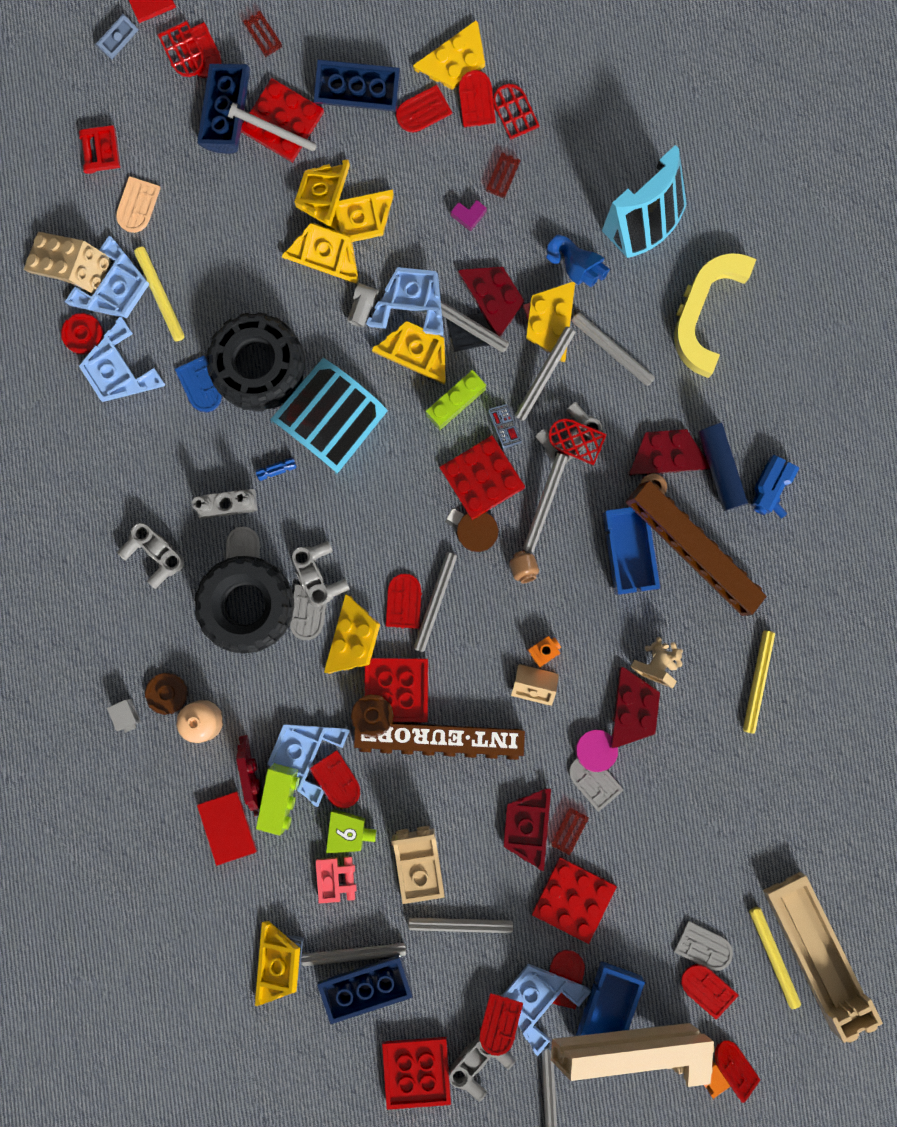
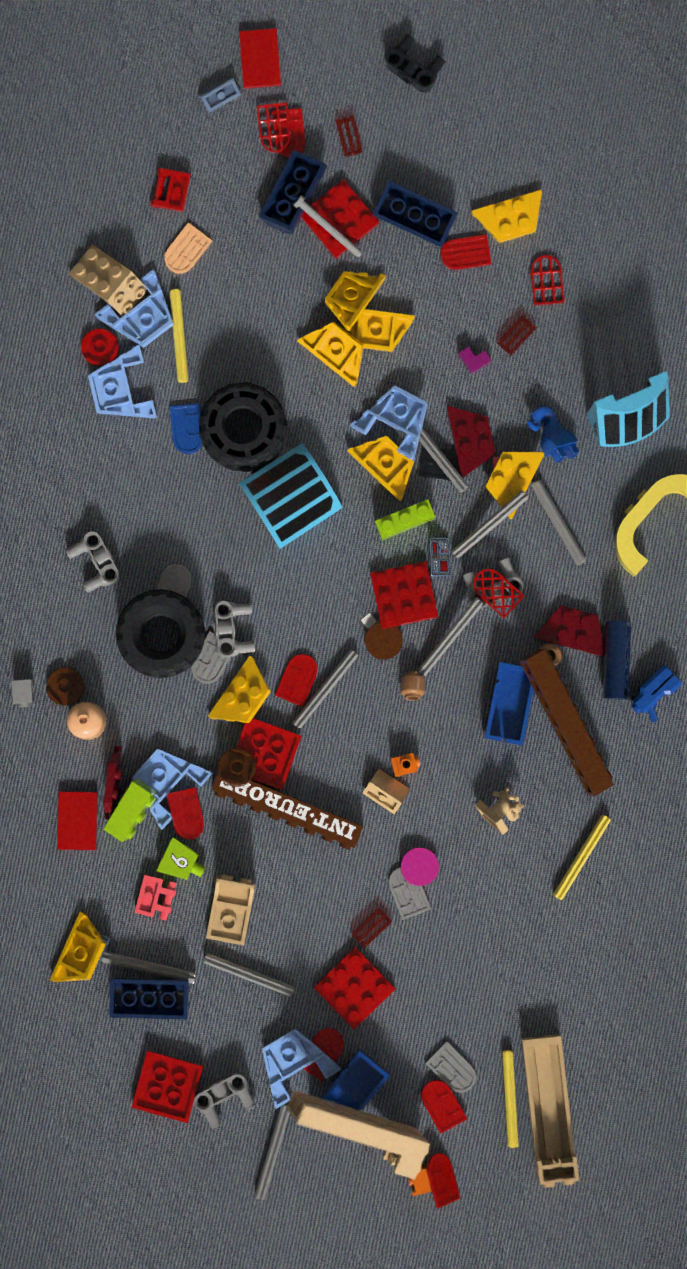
camera: 20 degrees right, 0 degrees up
(212, 505) = (160, 538): light grey piece -> none
(275, 469) = (227, 524): blue axle -> none
(364, 299) = (355, 404): light grey piece -> none
(476, 99) = (516, 260): red window -> none
(499, 1024) = (253, 1068): red window -> none
(528, 827) = (336, 911): dark red wing -> none
(634, 709) = (465, 843): dark red wing -> none

